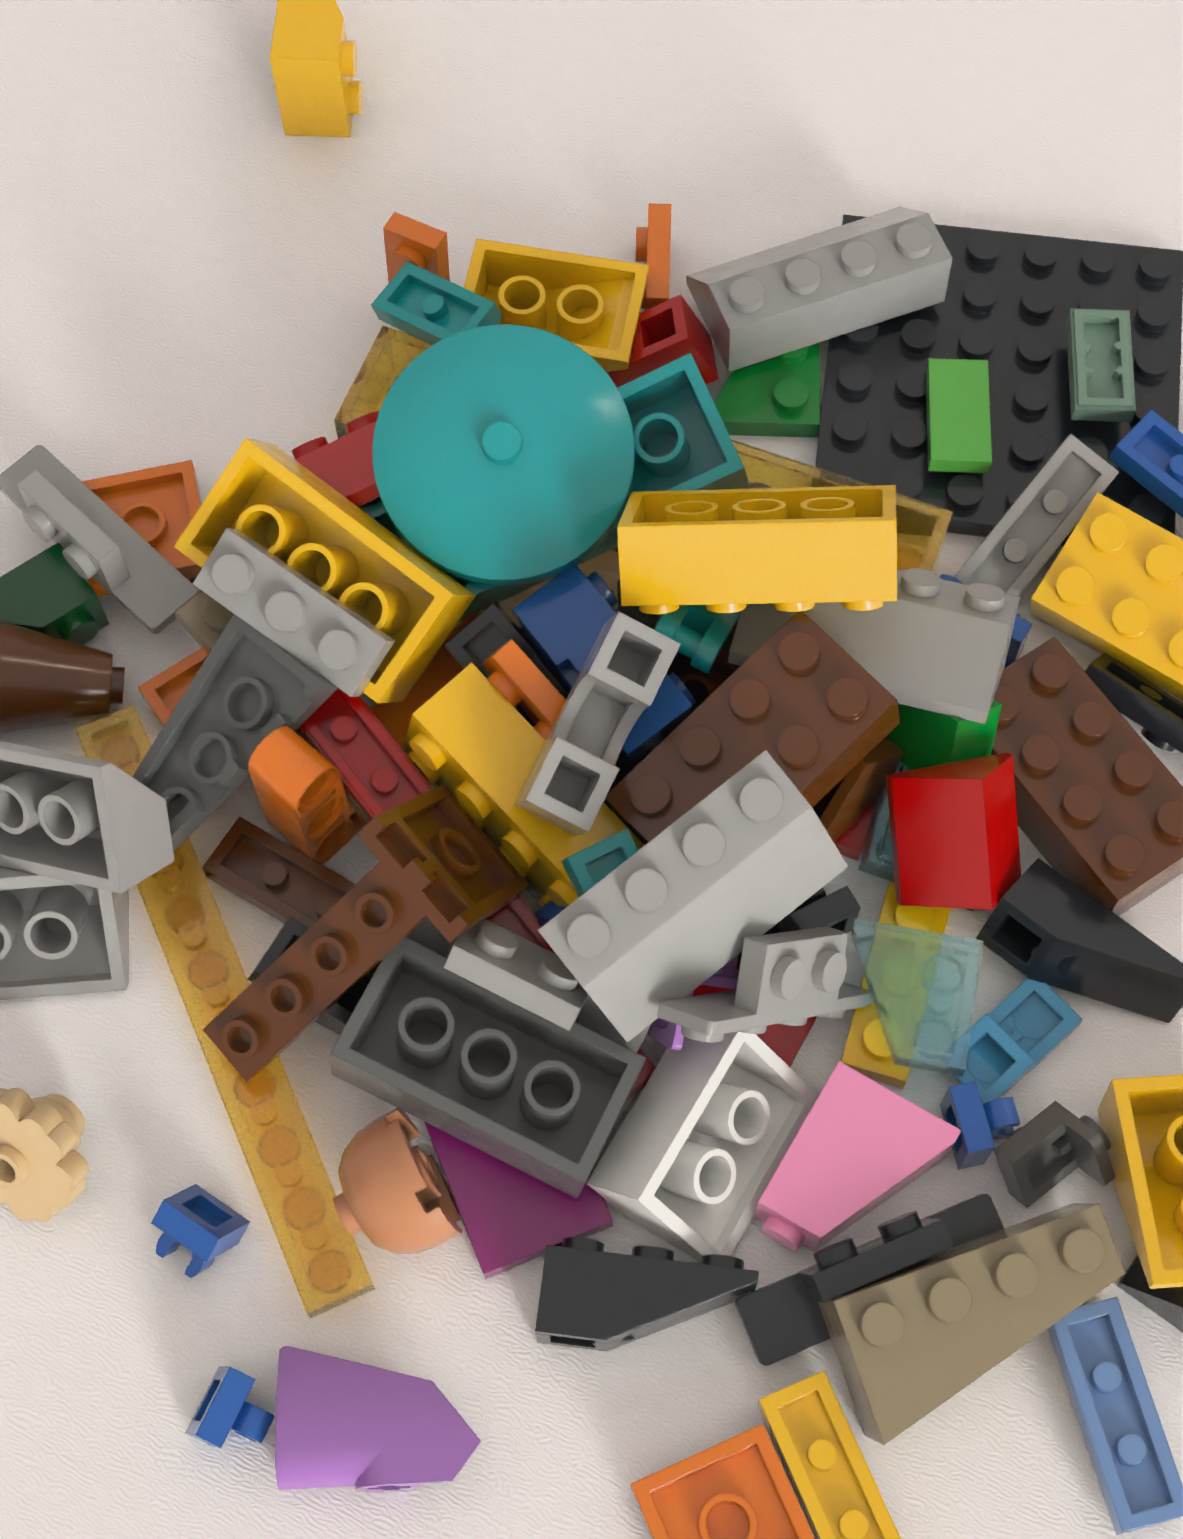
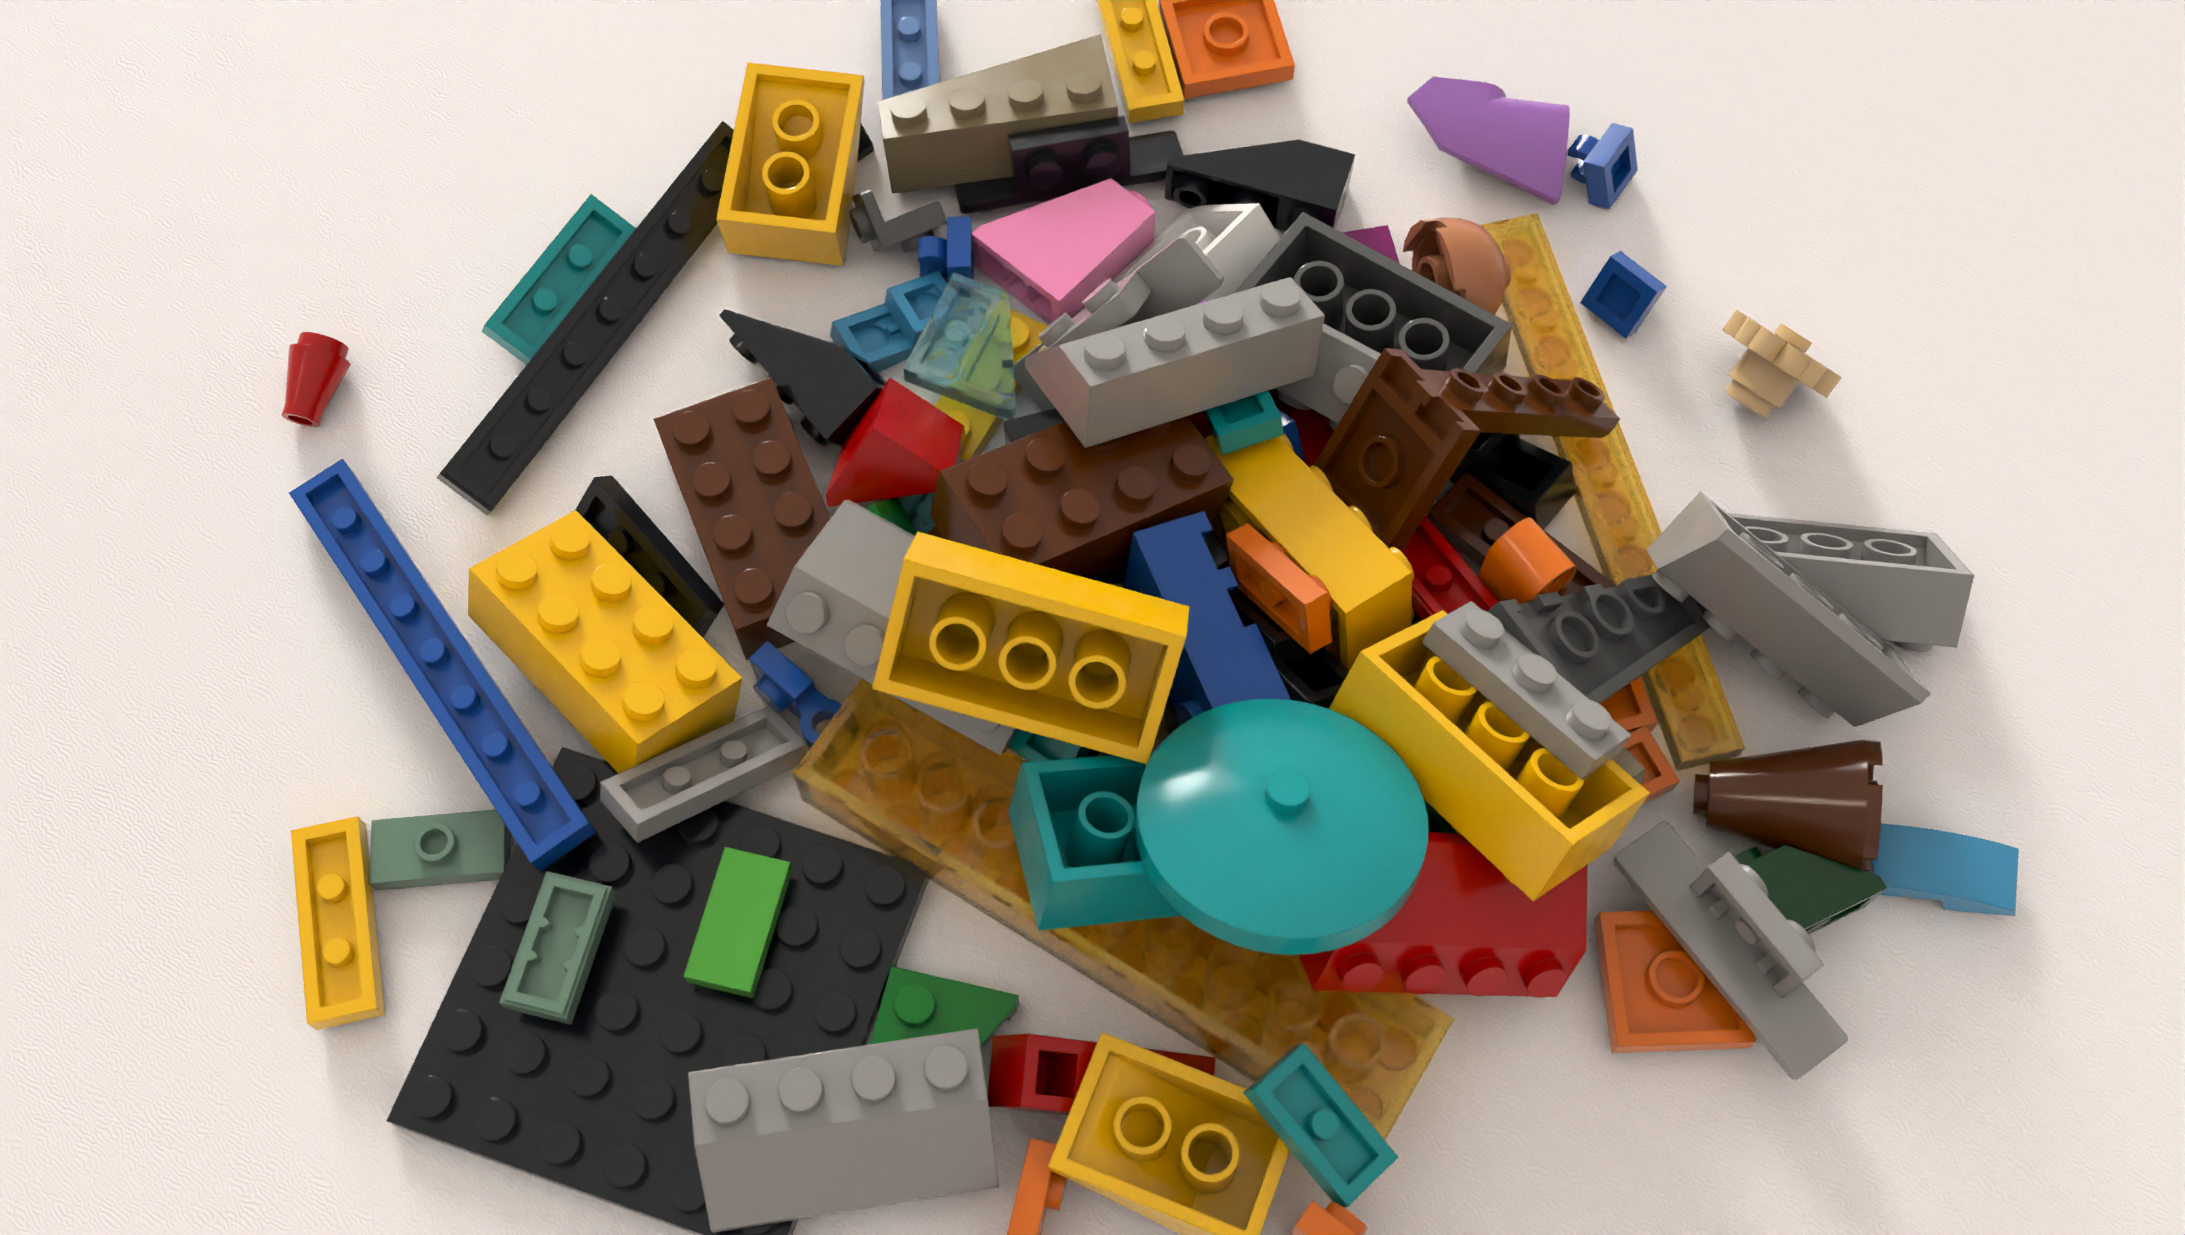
camera: 170 degrees left, 0 degrees up
(595, 722) = (1208, 535): light grey arch -> none

